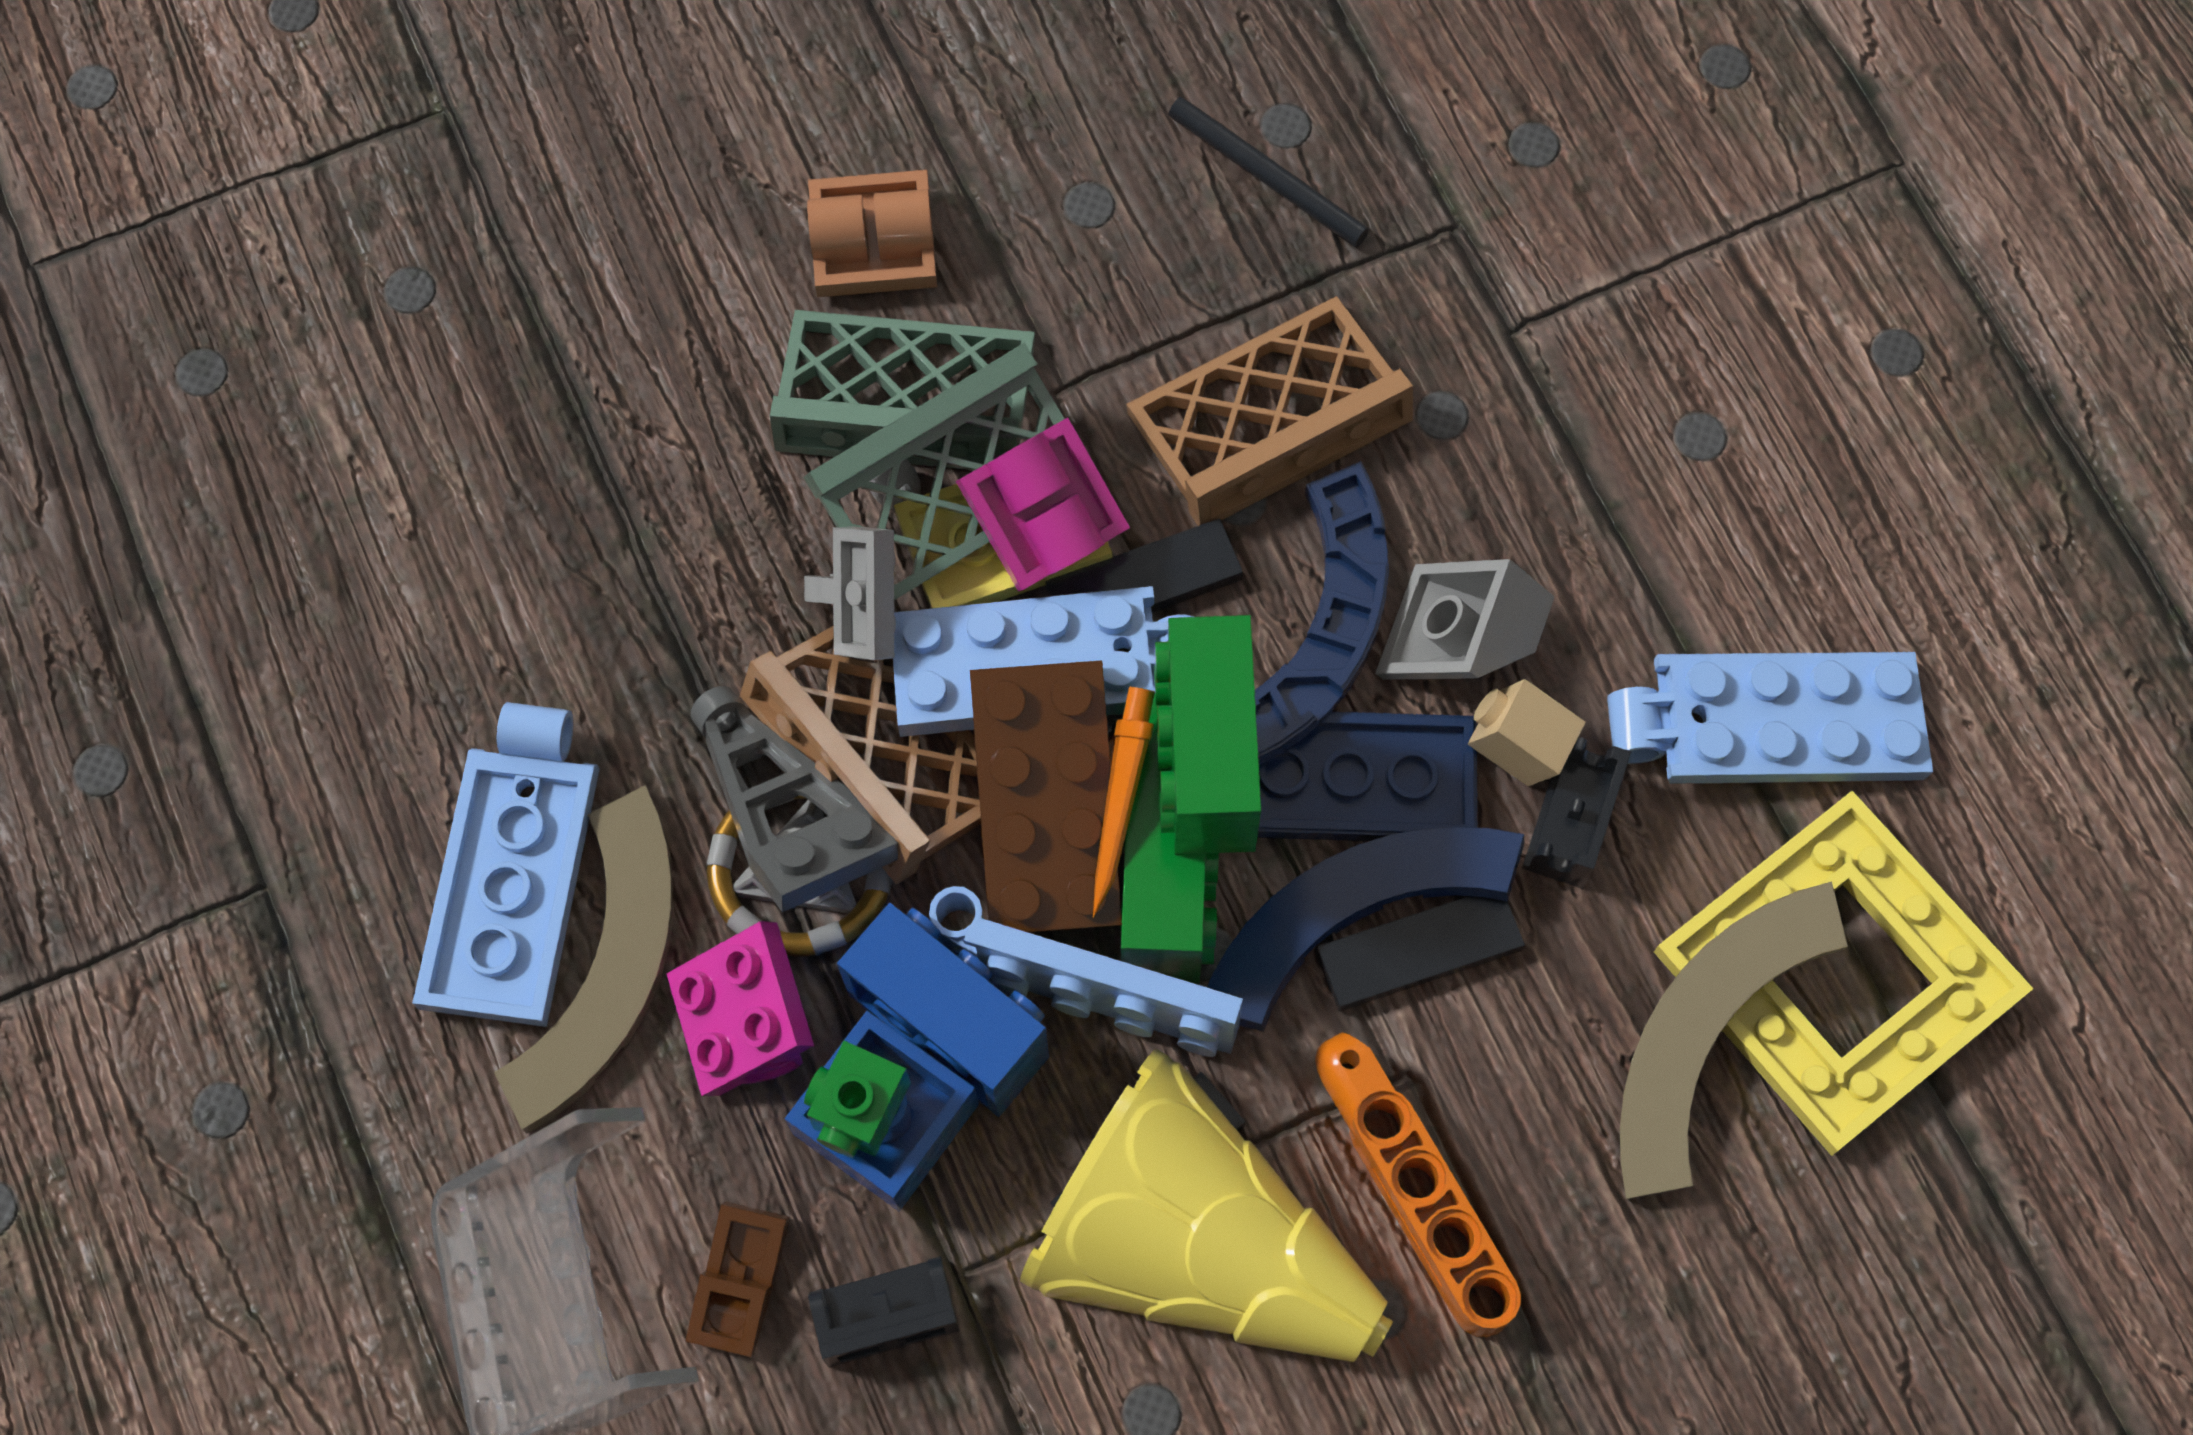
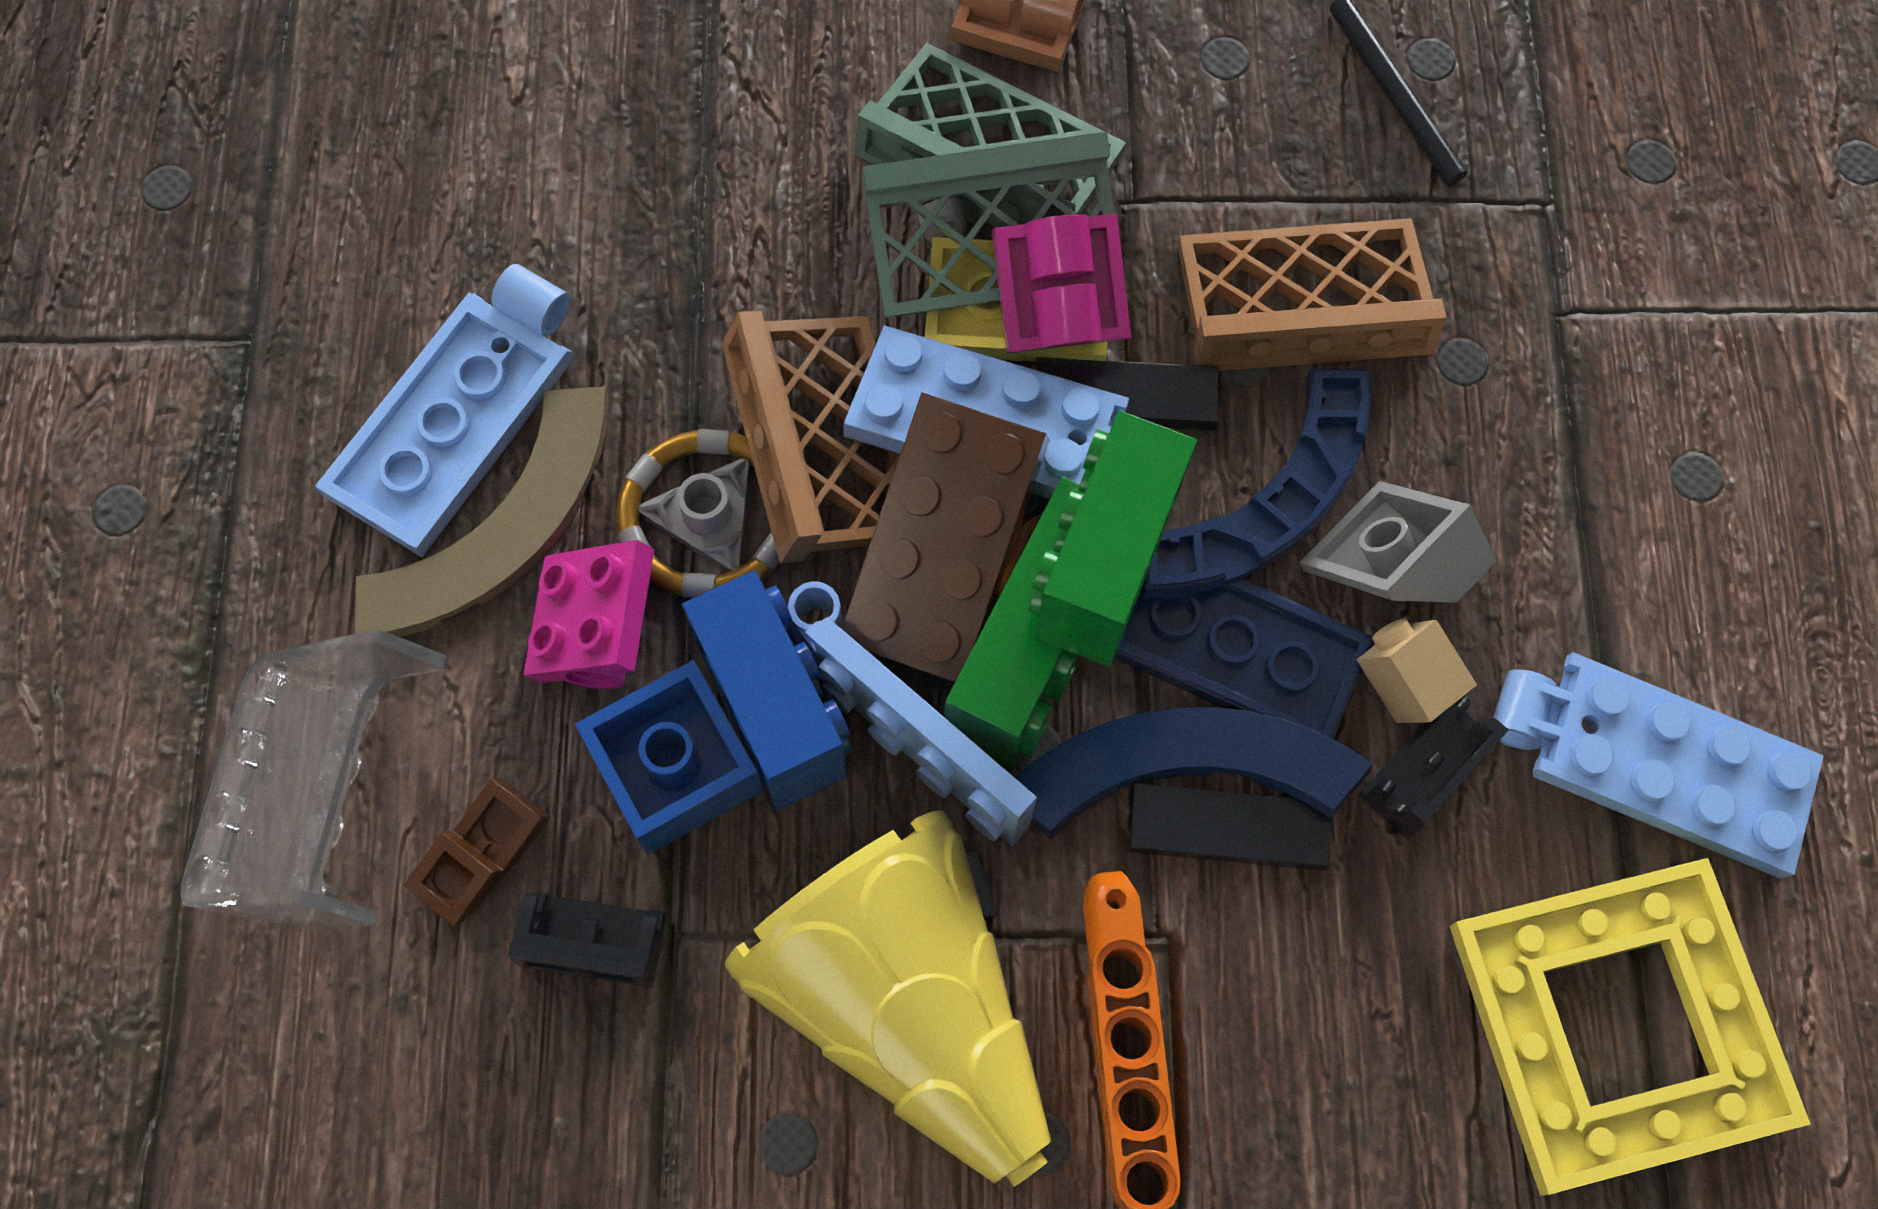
camera: 20 degrees right, 0 degrees up
(812, 857) = (711, 503): dark grey plate -> none
(855, 1100) = (640, 734): green brick -> none
(859, 592) = (863, 293): light grey plate -> none
(1129, 753) = (1042, 513): orange bar -> none
(1694, 1015) = (1464, 1001): dark tan tile -> none

